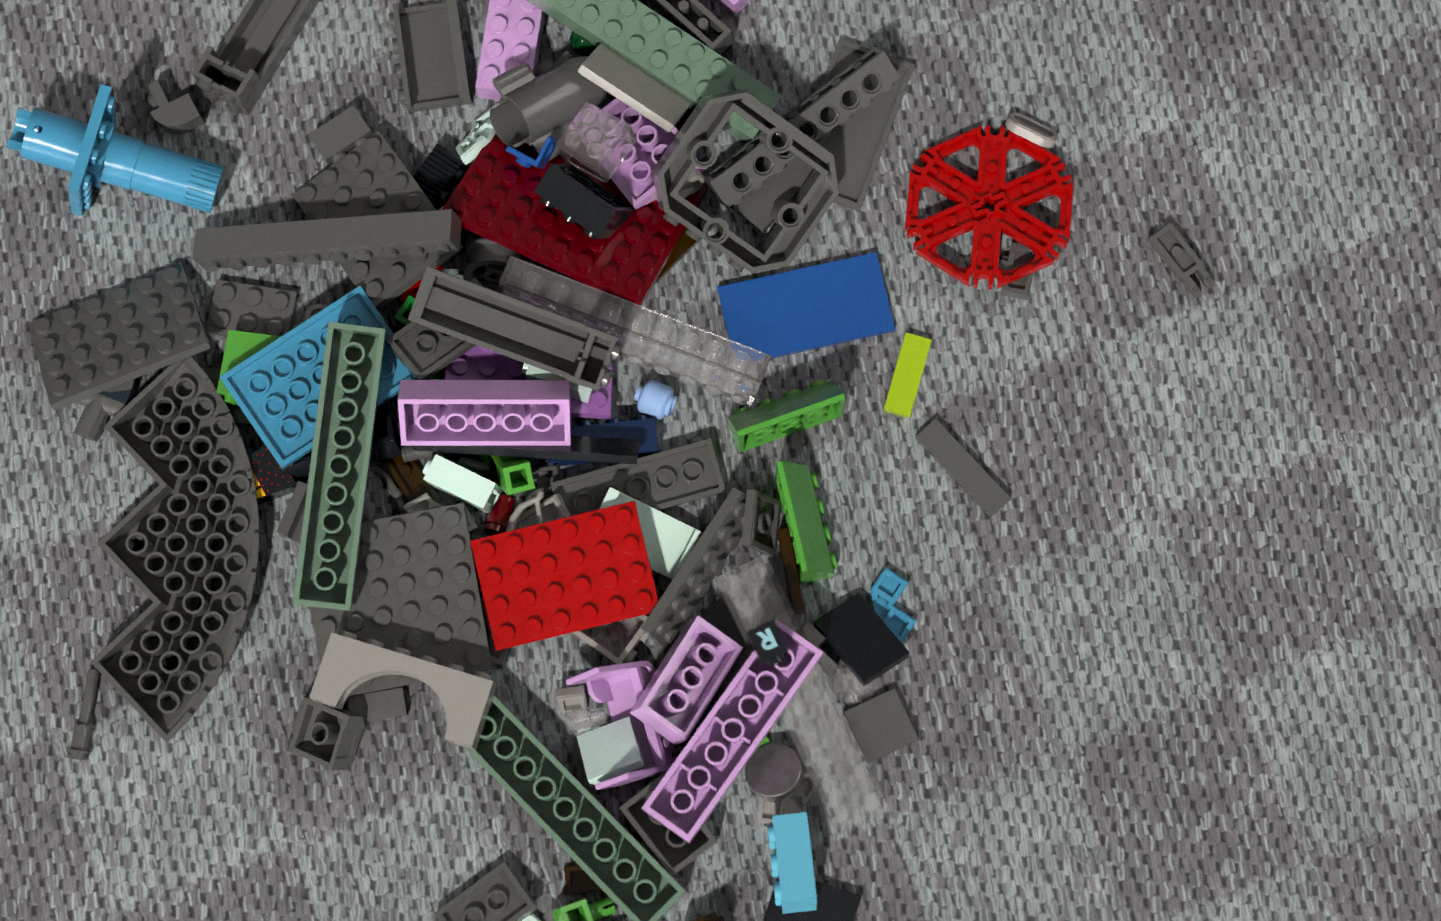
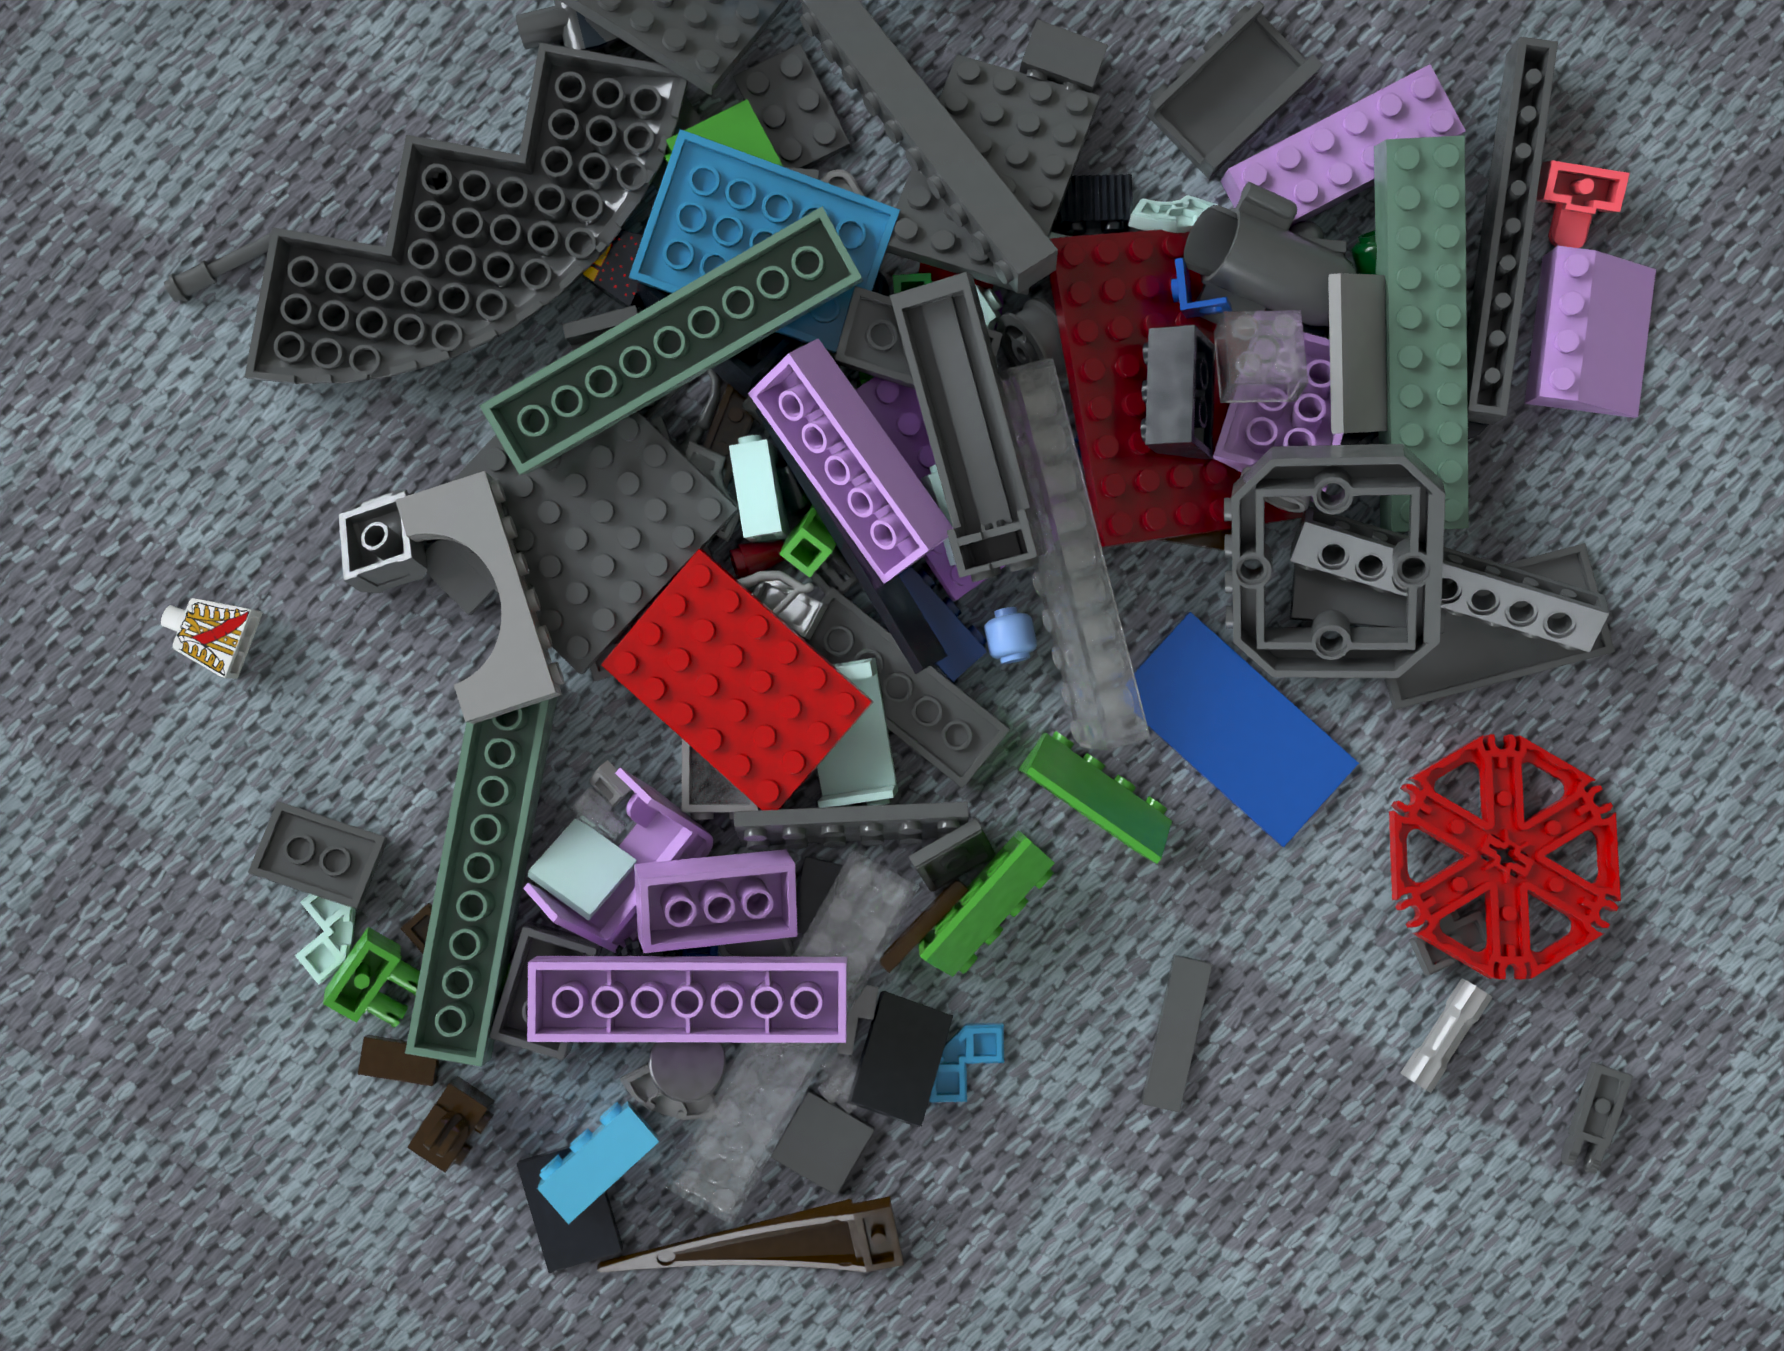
camera: 50 degrees right, 10 degrees up
(302, 879) = (213, 634): none -> torso
(768, 644) = (808, 978): black brick -> none
(907, 375) = (1240, 897): lime tile -> none
(940, 760) = (827, 1237): none -> dark brown plate
(1031, 130) = (1631, 841): light grey tile -> none
(1065, 295) = (1431, 1058): none -> light grey axle

